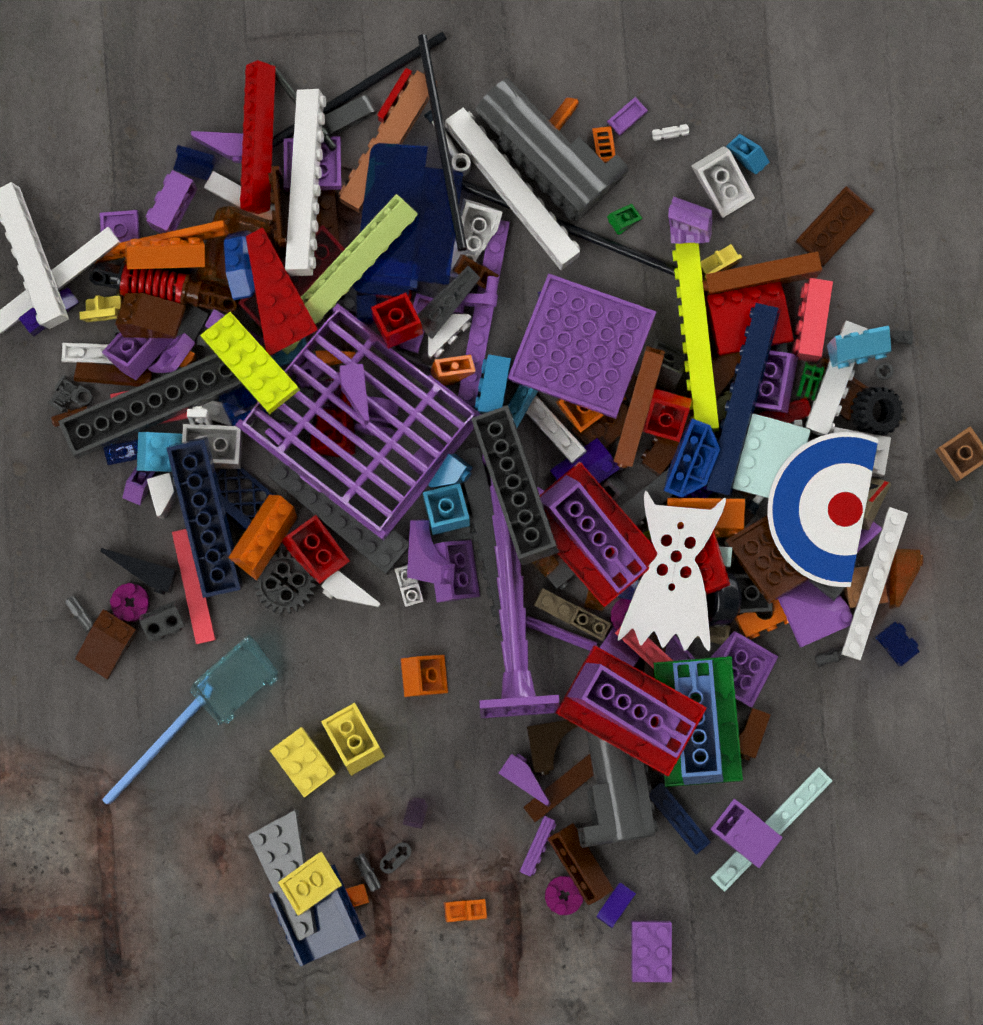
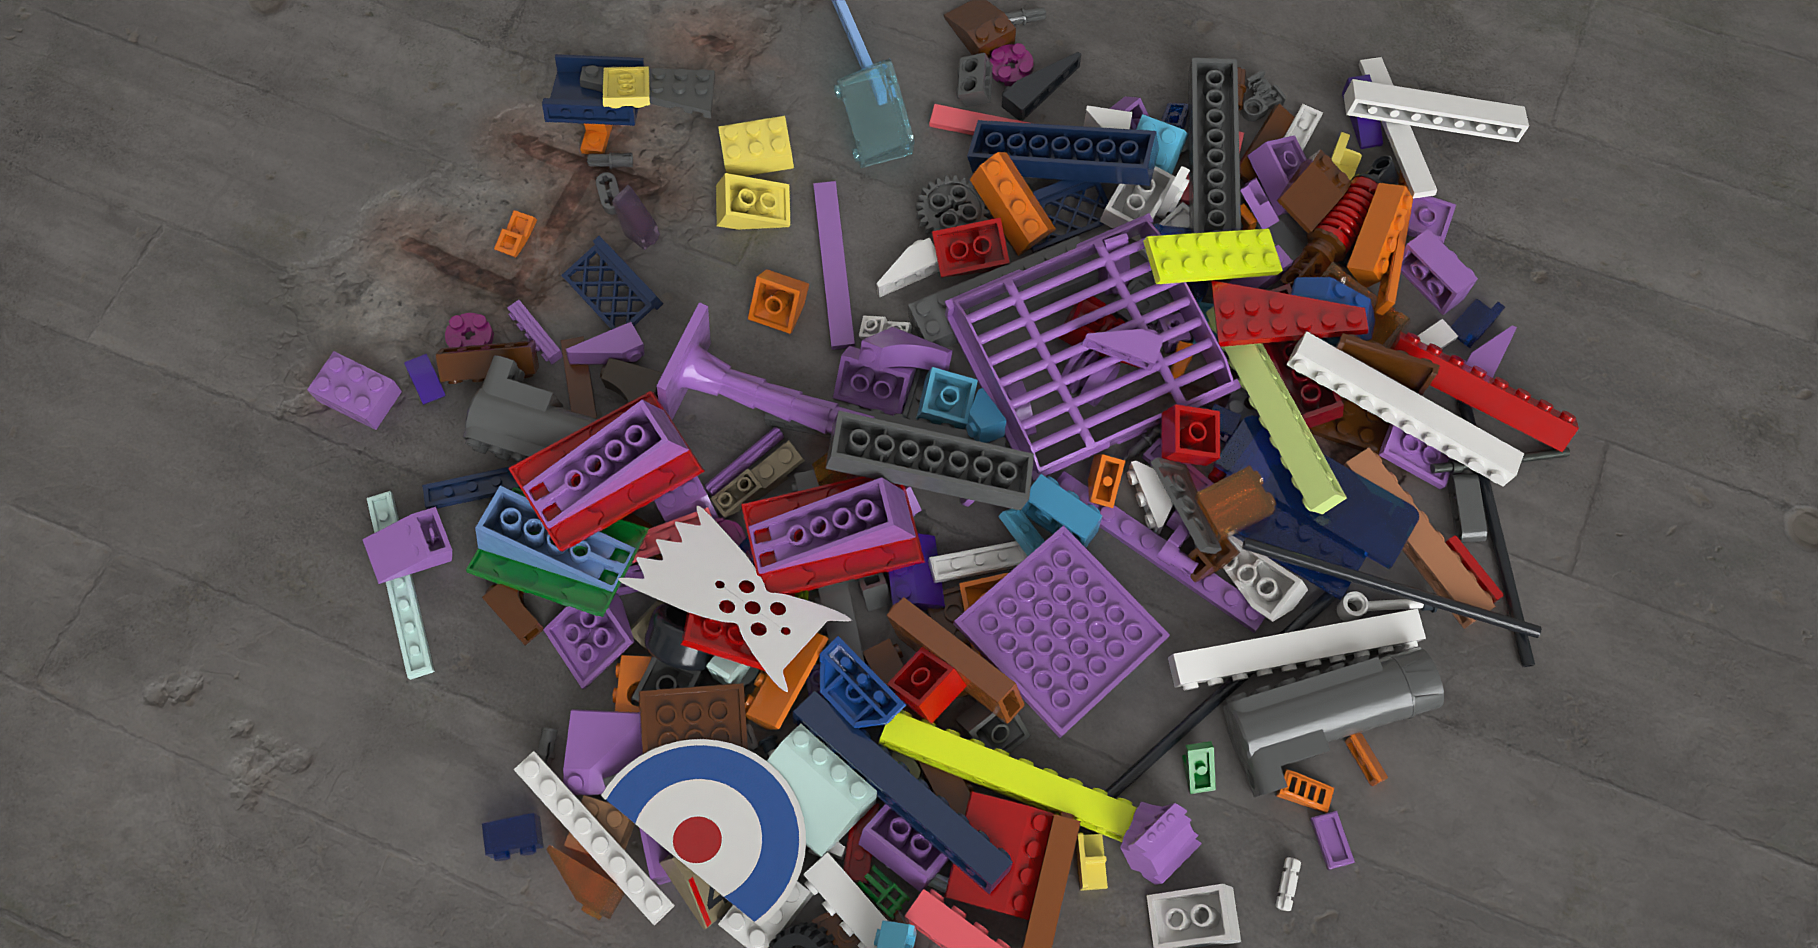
camera: 120 degrees right, 15 degrees down
(371, 652) = (834, 265): none -> medium lavender tile
(434, 267) = (1235, 503): none -> clear orange brick
(457, 807) = (621, 270): none -> dark blue fence

